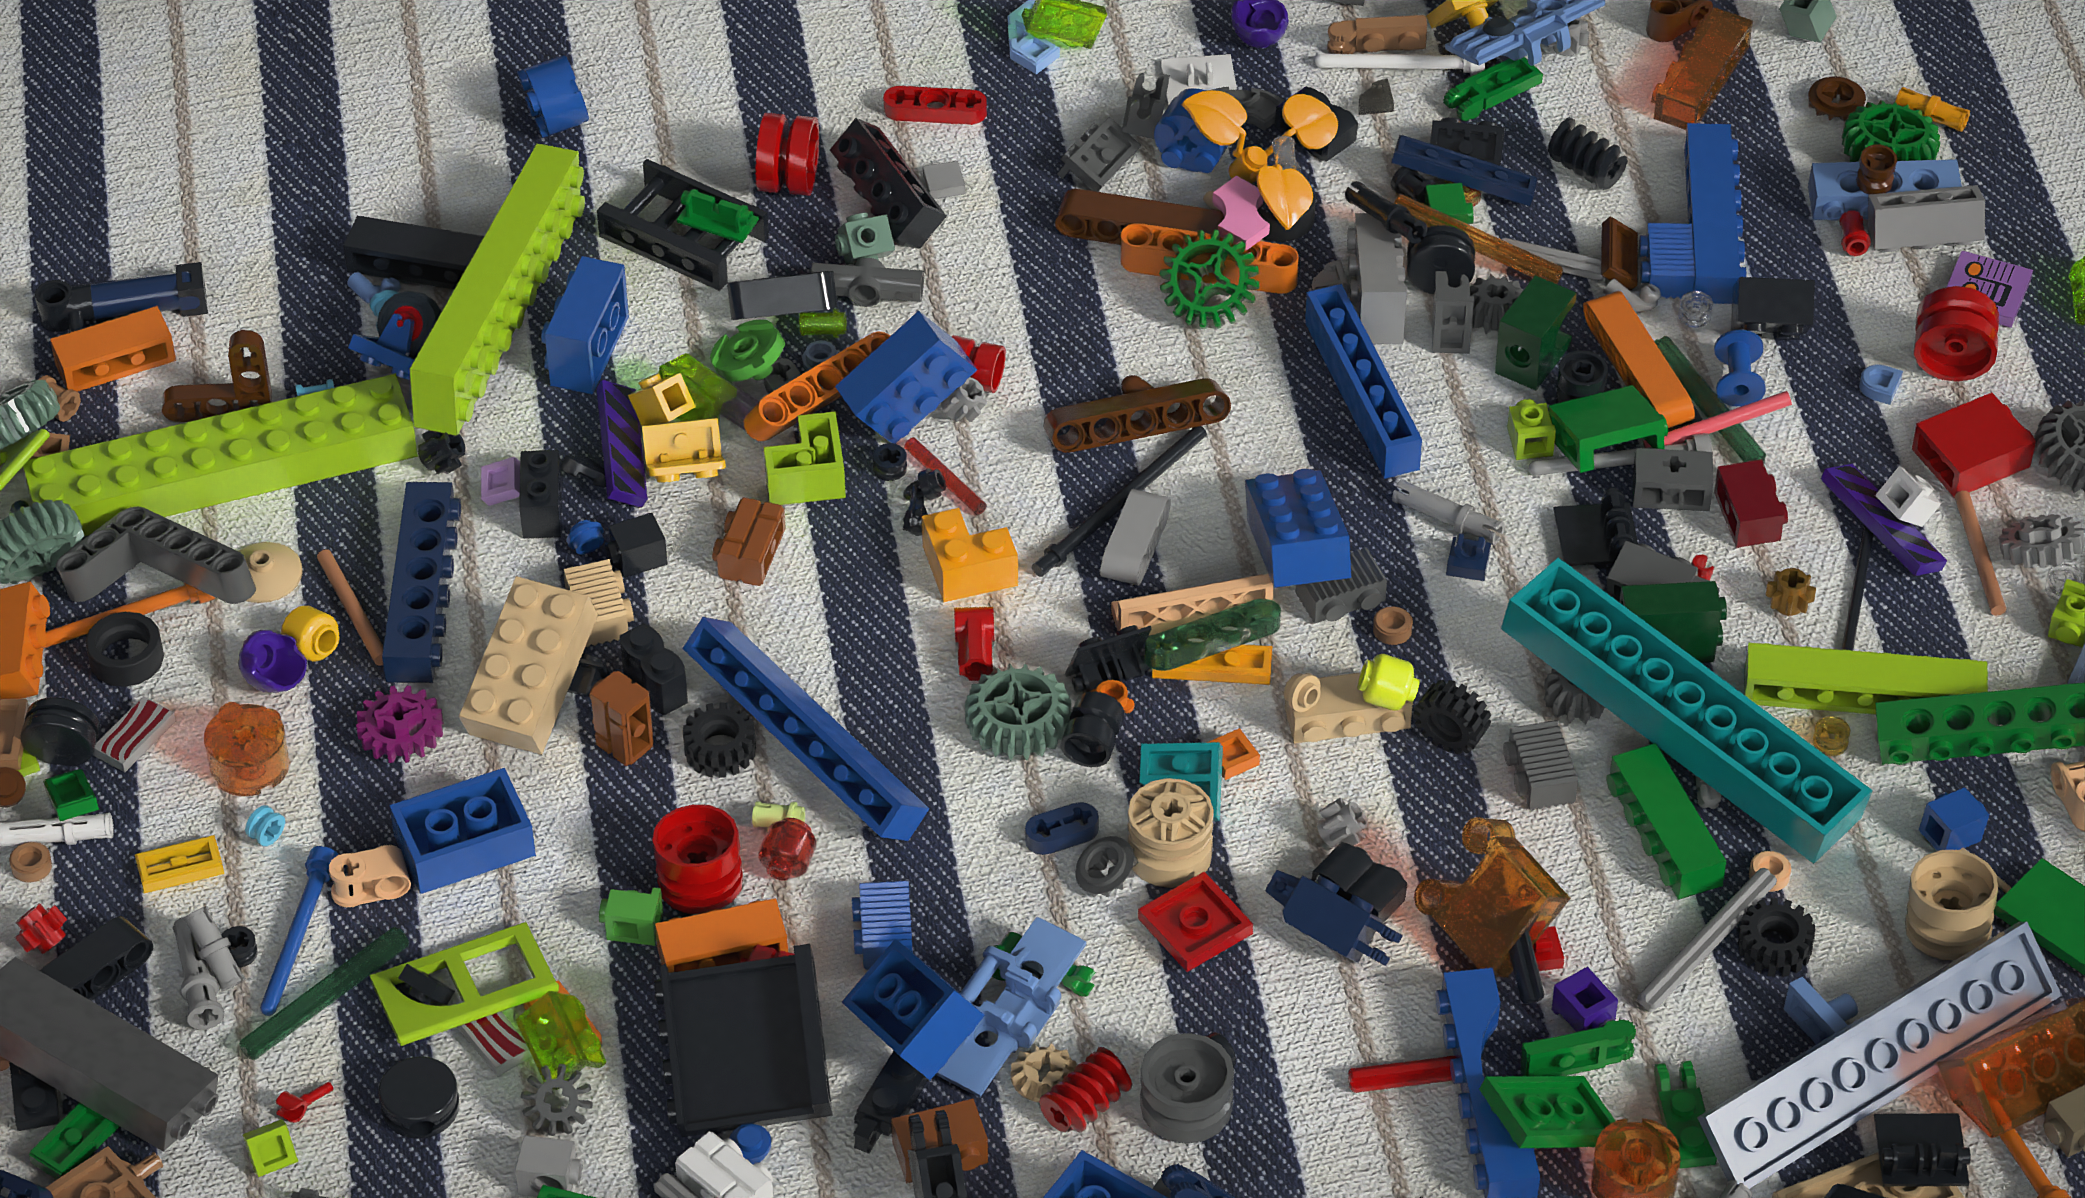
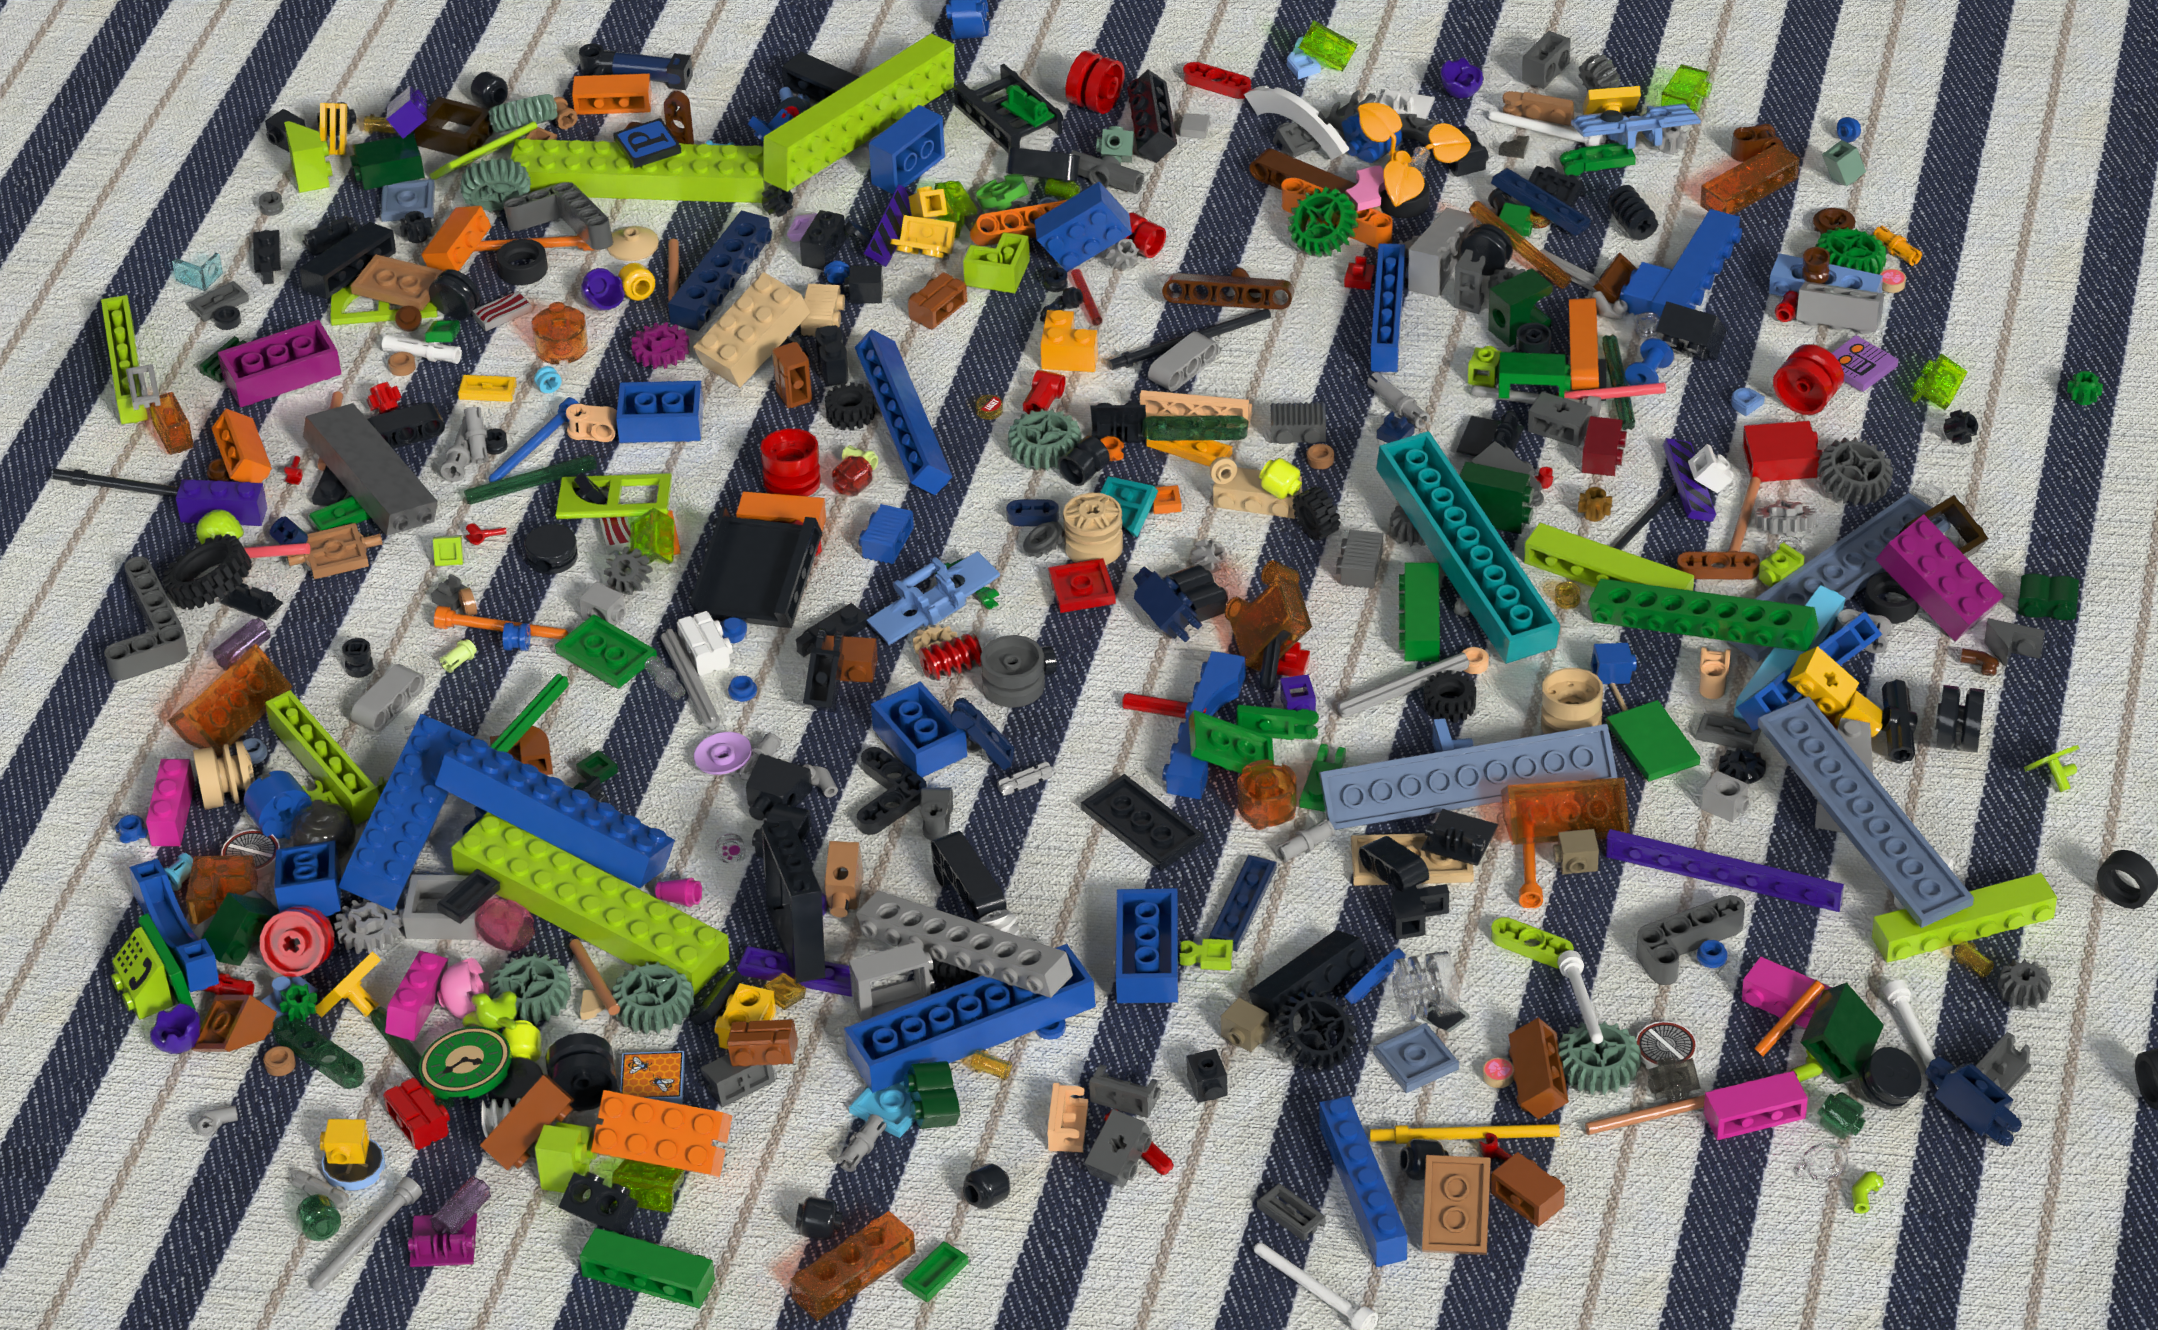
camera: 25 degrees right, 5 degrees down
(223, 417) = (647, 143): none -> tile
(631, 916) = (732, 483): bright green brick -> none
(909, 682) = (989, 407): none -> clear yellow tile
(913, 1009) = (865, 577): blue brick -> none
(1080, 122) = (1295, 108): none -> white tile
(1287, 340) = (1359, 274): none -> red tile
(1297, 528) = (1282, 377): blue brick -> none
(1393, 216) = (1462, 210): black pin -> none
(1961, 153) = (1893, 280): none -> tile
(2002, 621) = (1738, 559): none -> dark orange beam

